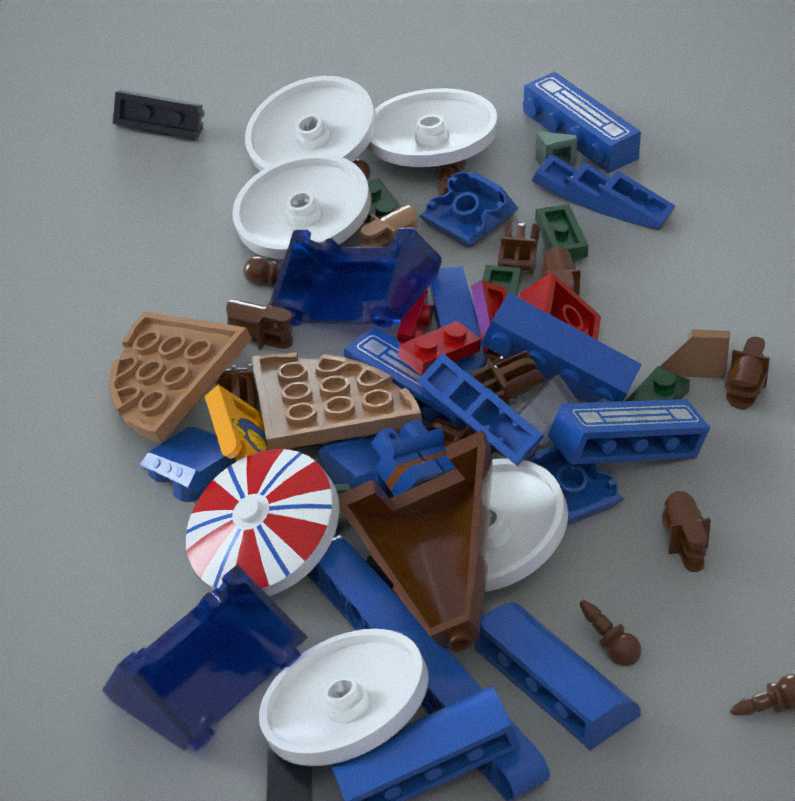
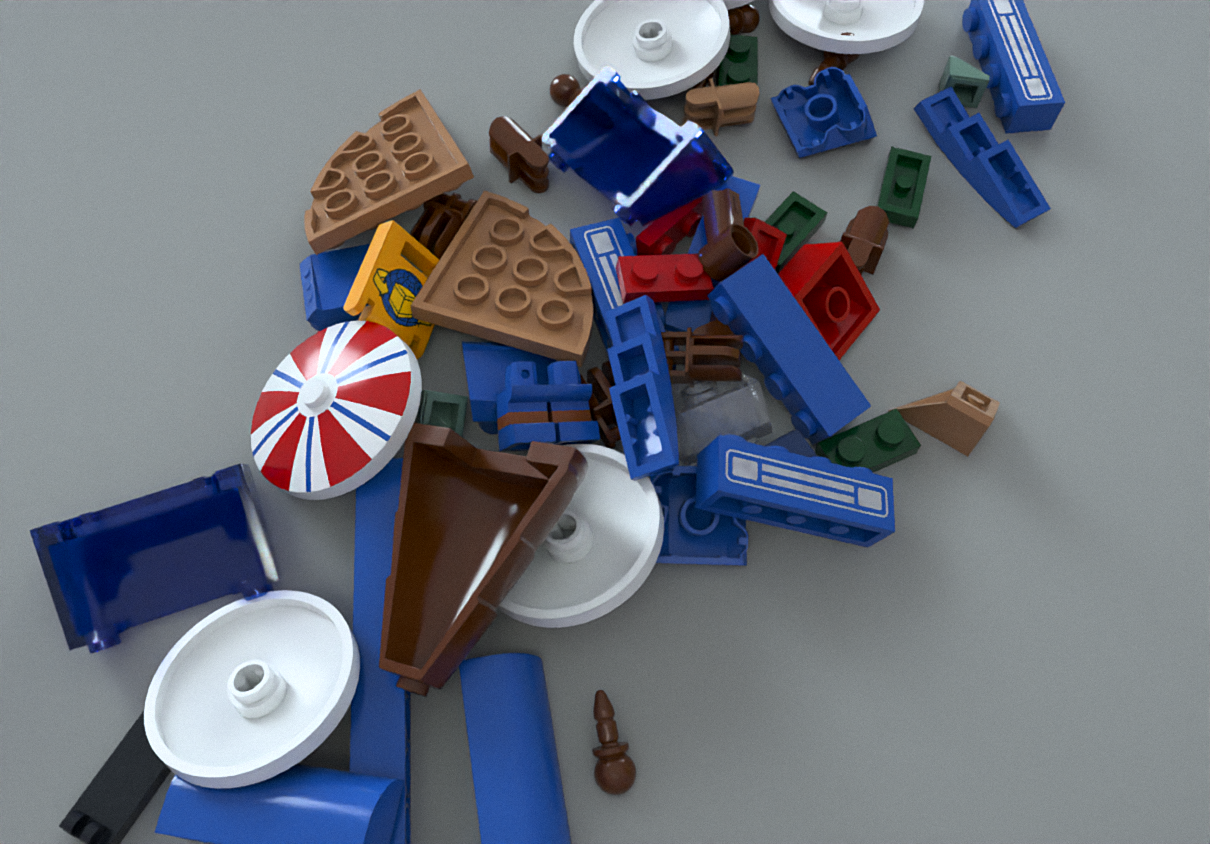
camera: 25 degrees right, 20 degrees up
(469, 302) = (728, 241): none -> reddish brown piece
(518, 250) = (842, 187): reddish brown arm -> none
(686, 530) = (785, 650): reddish brown arm -> none
(747, 374) = (990, 471): reddish brown arm -> none

